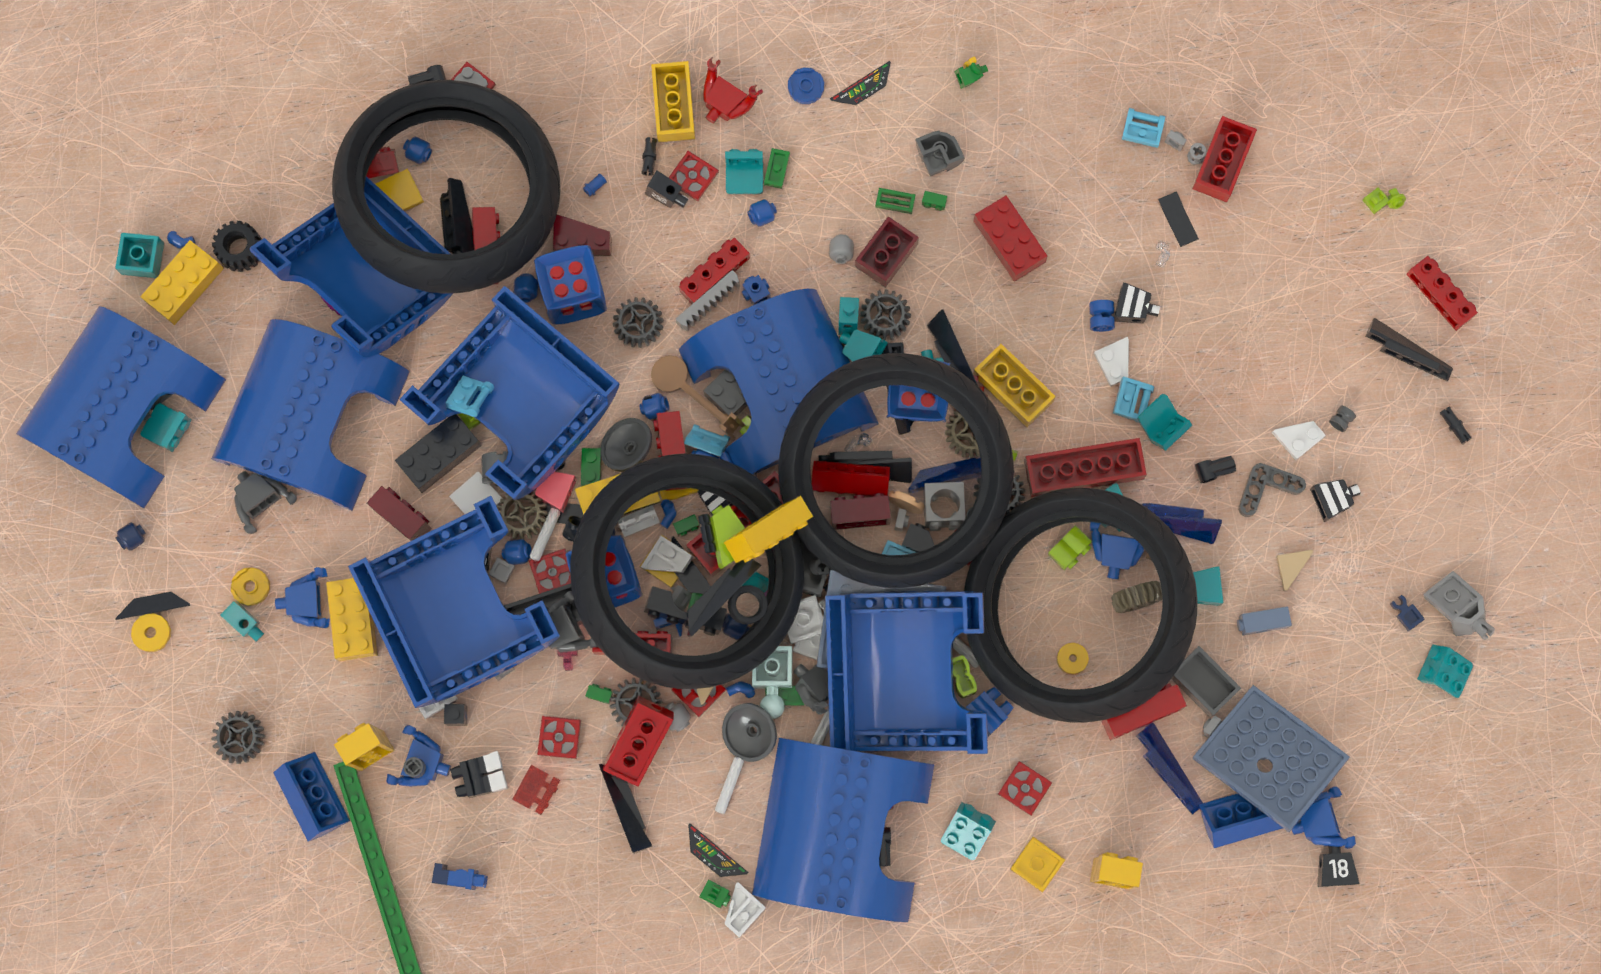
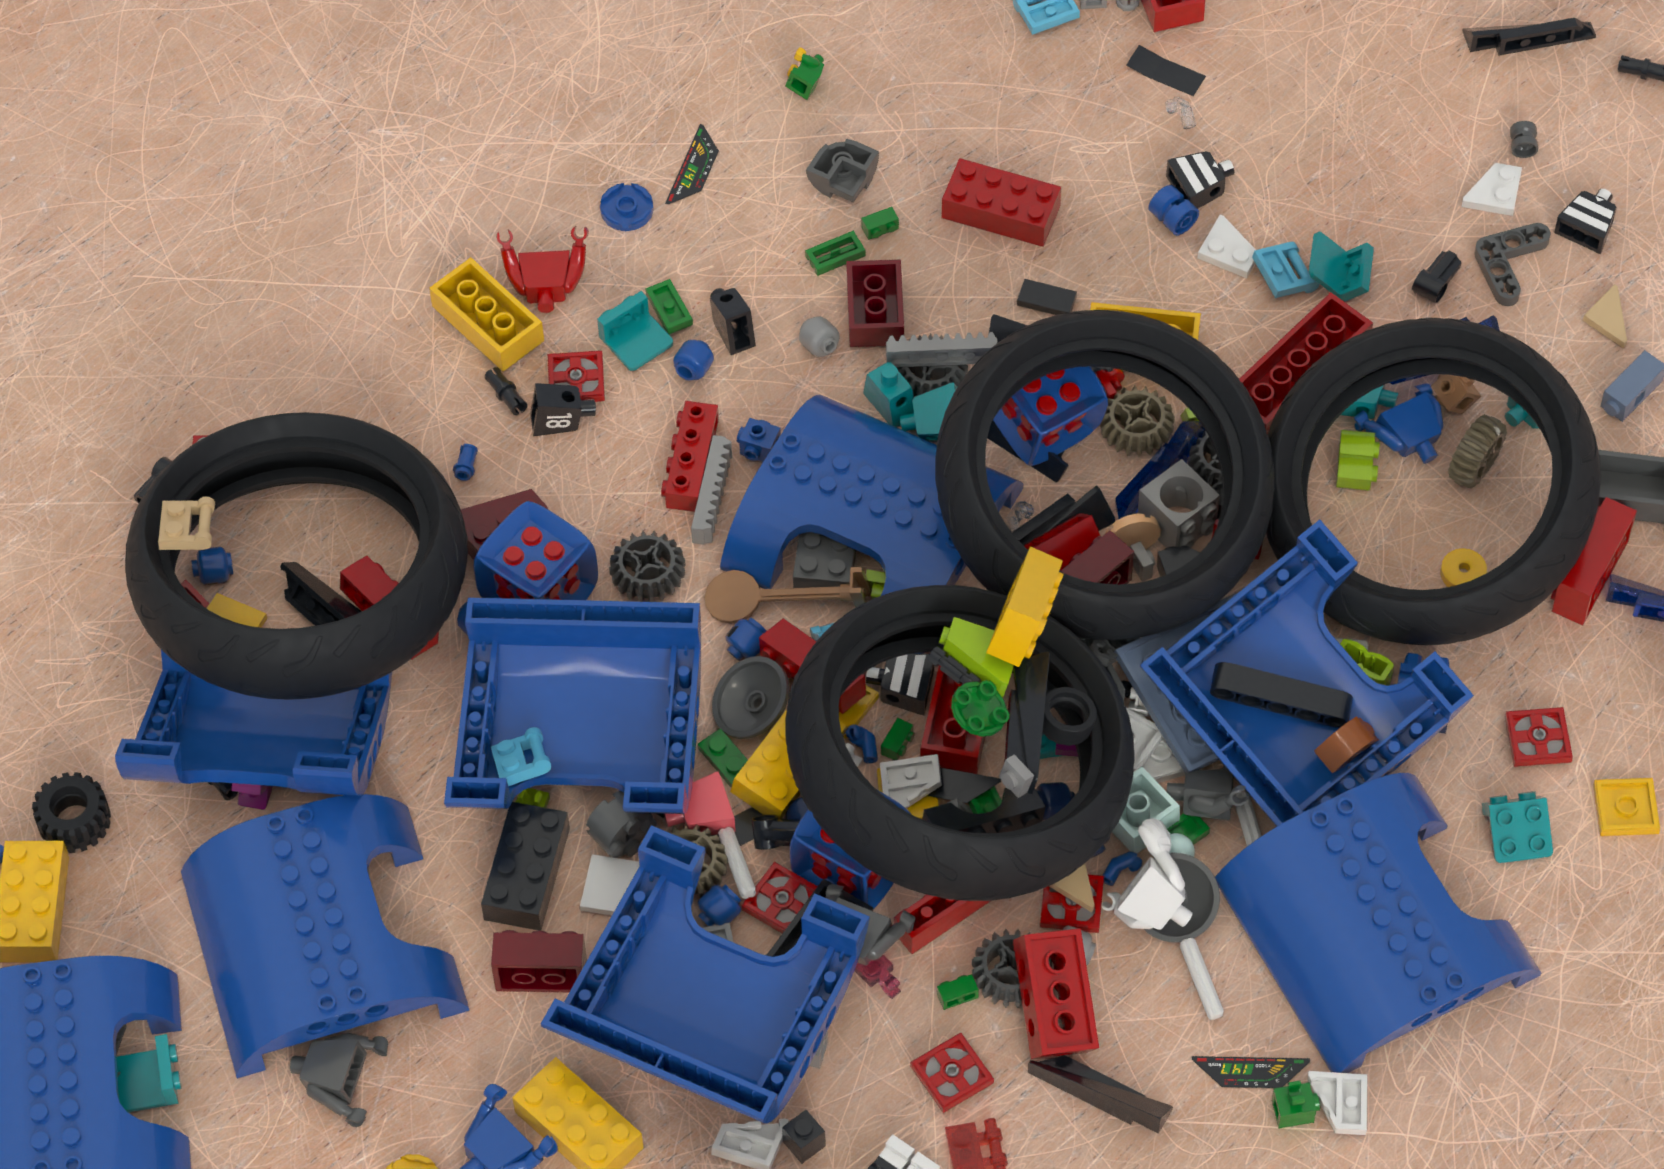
camera: 40 degrees left, 20 degrees down
(383, 129) = (176, 524): none -> tan plate
(683, 623) = (1016, 776): none -> light grey plate
(700, 568) = (979, 708): none -> green dish
(736, 724) = (1157, 888): none -> white torso
(801, 203) = (730, 307): none -> black torso
(892, 313) = (937, 351): none -> light grey gear
(895, 665) = (1281, 694): none -> black beam
(909, 719) = (1346, 744): none -> dark orange brick
(987, 317) = (1046, 297): none -> black tile

